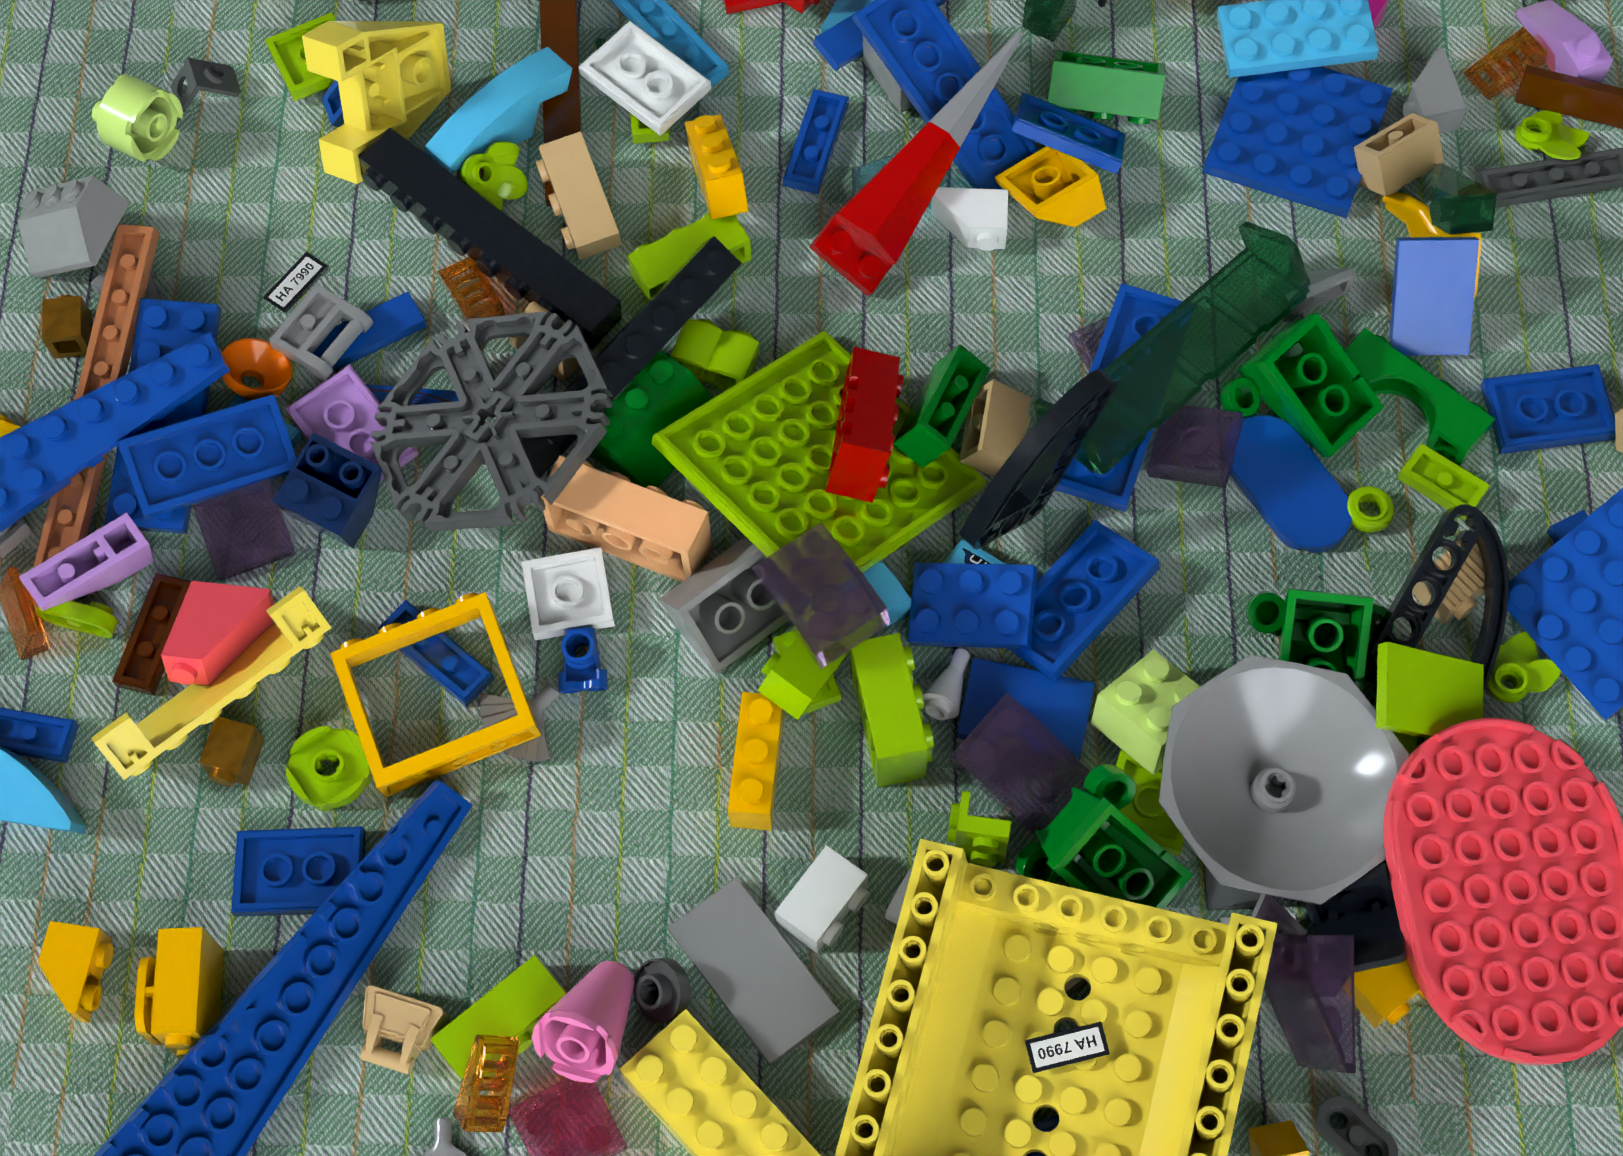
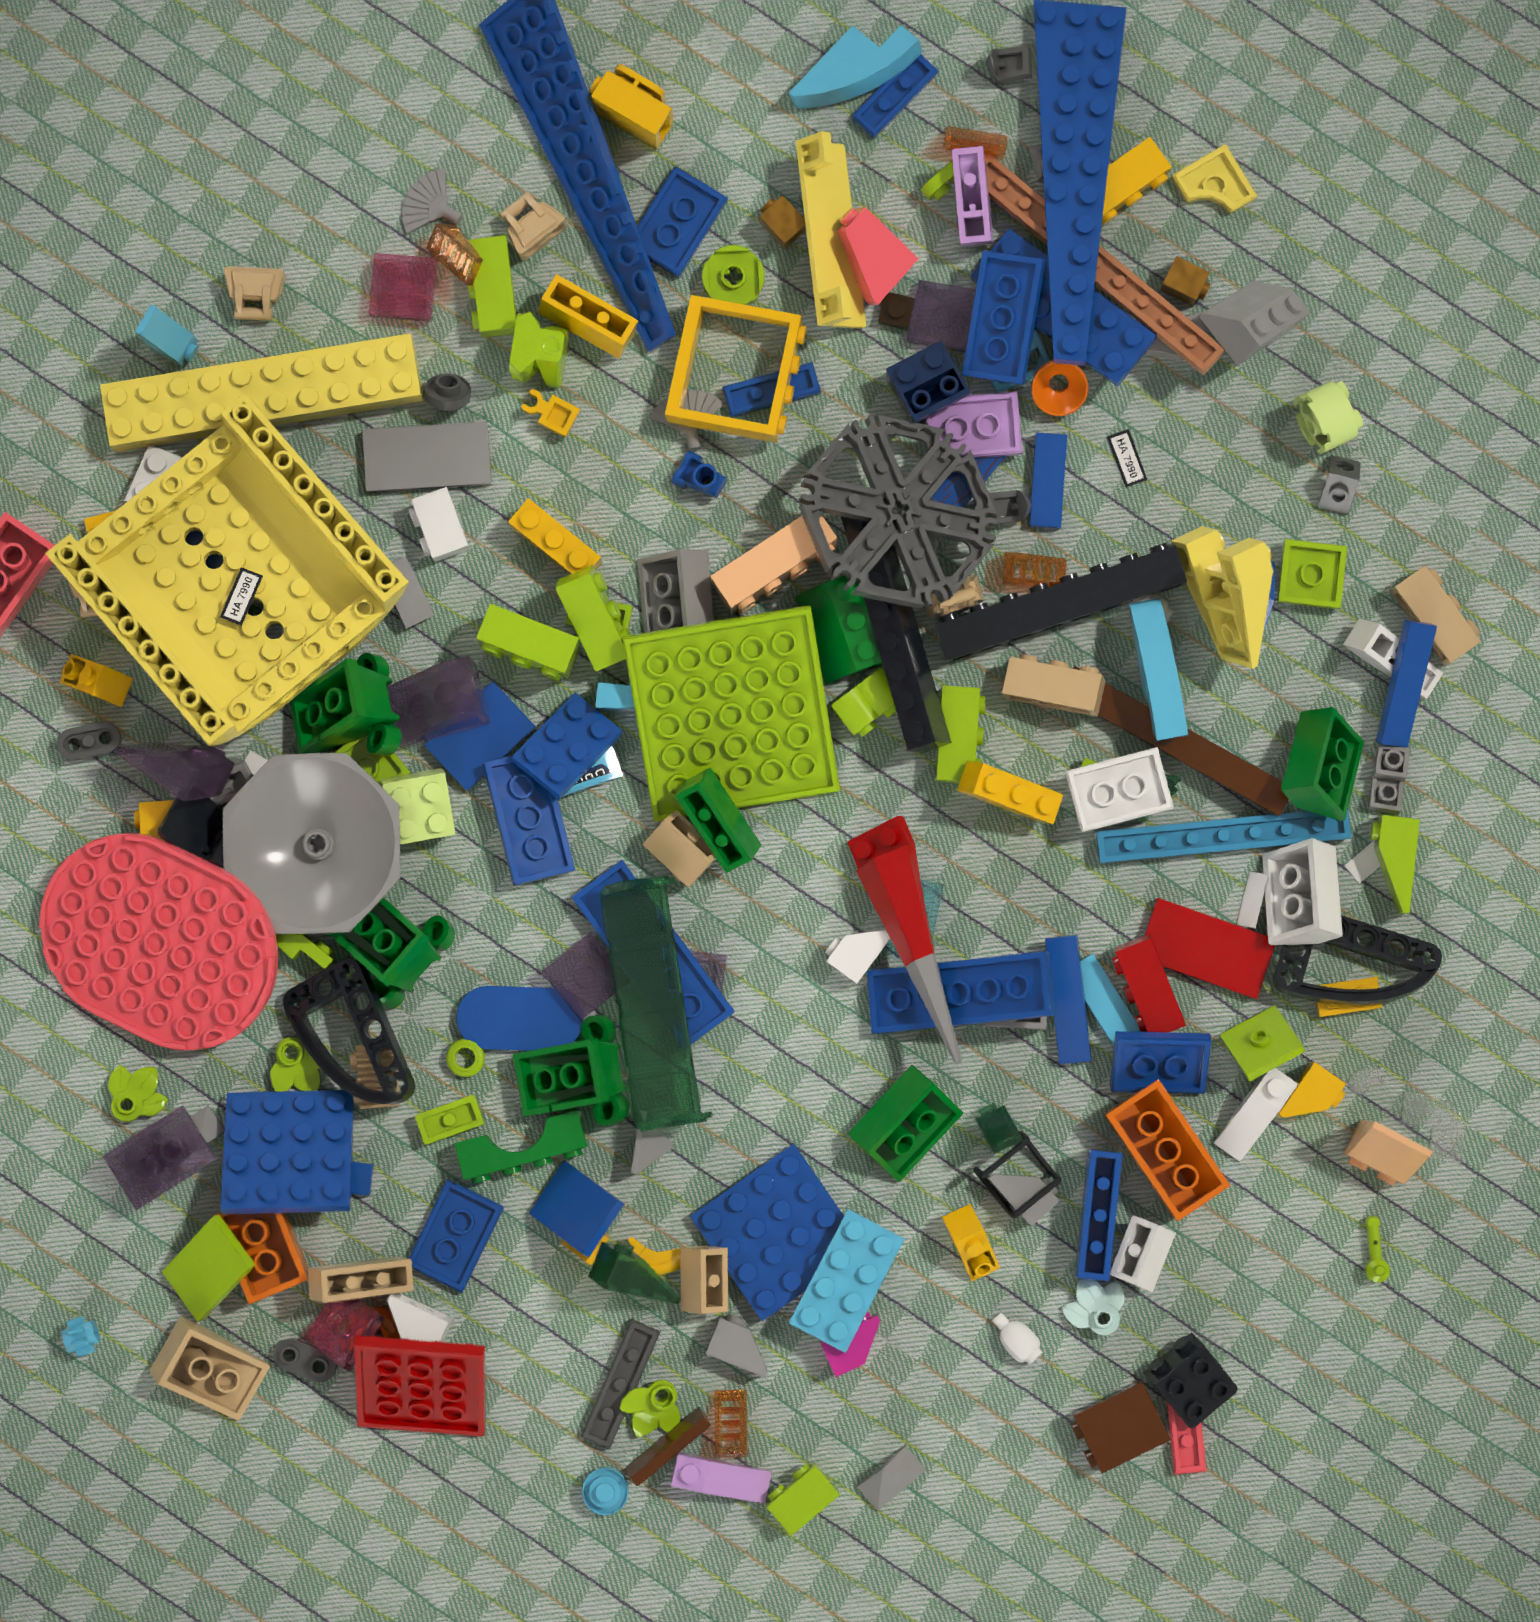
camera: 120 degrees right, 20 degrees up
(74, 965) = (701, 52): yellow slope -> none
(142, 660) = (906, 219): reddish brown tile -> none
(268, 575) = (896, 311): none -> dark brown plate
(312, 323) = (1069, 441): light grey plate -> none
(410, 340) = (1011, 505): none -> dark grey plate
(471, 887) = (587, 316): none -> yellow brick
(500, 176) = (1112, 638): lime plate -> none
(546, 913) = (539, 350): none -> lime piece
(567, 593) = (754, 497): white plate -> none
(587, 1024) = (453, 336): bright pink cone -> none
(610, 857) = (555, 415): none -> yellow plate
(816, 141) = (1000, 888): blue tile -> none
(822, 595) = (618, 636): slope -> none
(865, 425) = (735, 758): red wedge -> none
(944, 695) = (523, 691): white cone -> none
(980, 837) = (406, 641): lime bracket -> none
(1040, 458) = (616, 836): black beam -> none
(1054, 187) = (841, 1017): yellow slope -> none
(1069, 133) = (873, 1058): blue tile -> none
(1425, 690) = (306, 977): lime tile -> none

